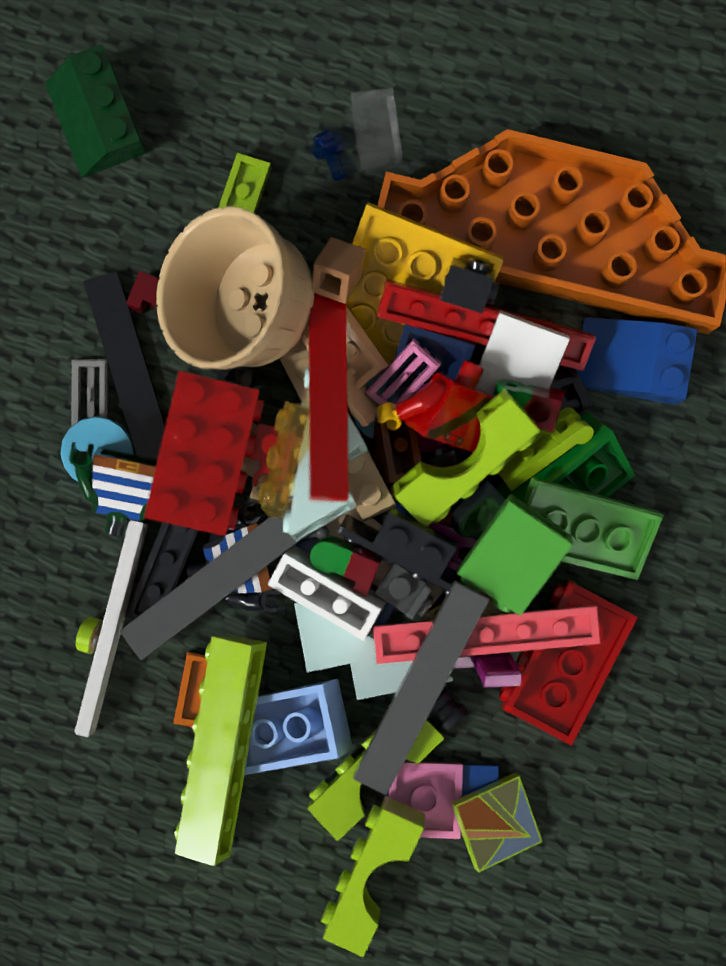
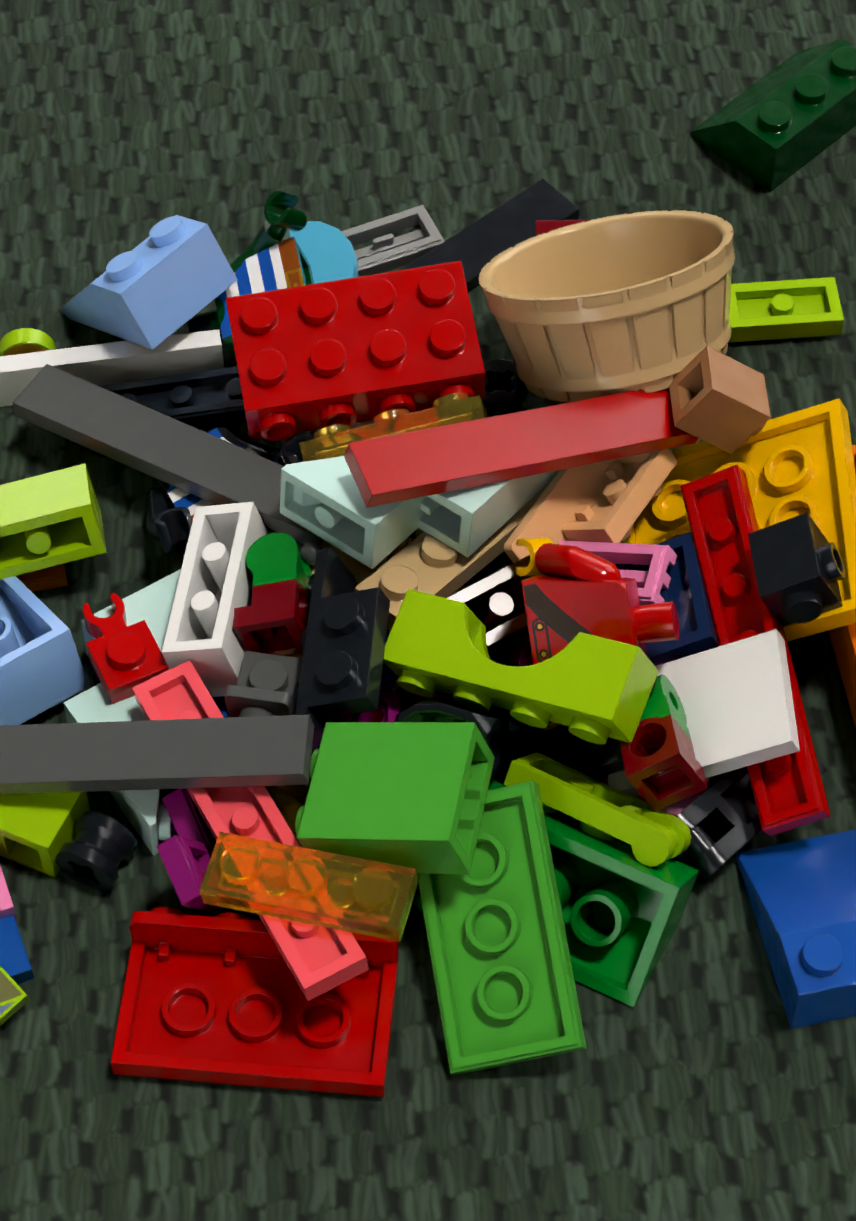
camera: 70 degrees right, 30 degrees down
(83, 550) = (156, 284): none -> light blue slope
(346, 657) = (121, 653): none -> red plate
(548, 620) = (309, 886): none -> clear yellow plate

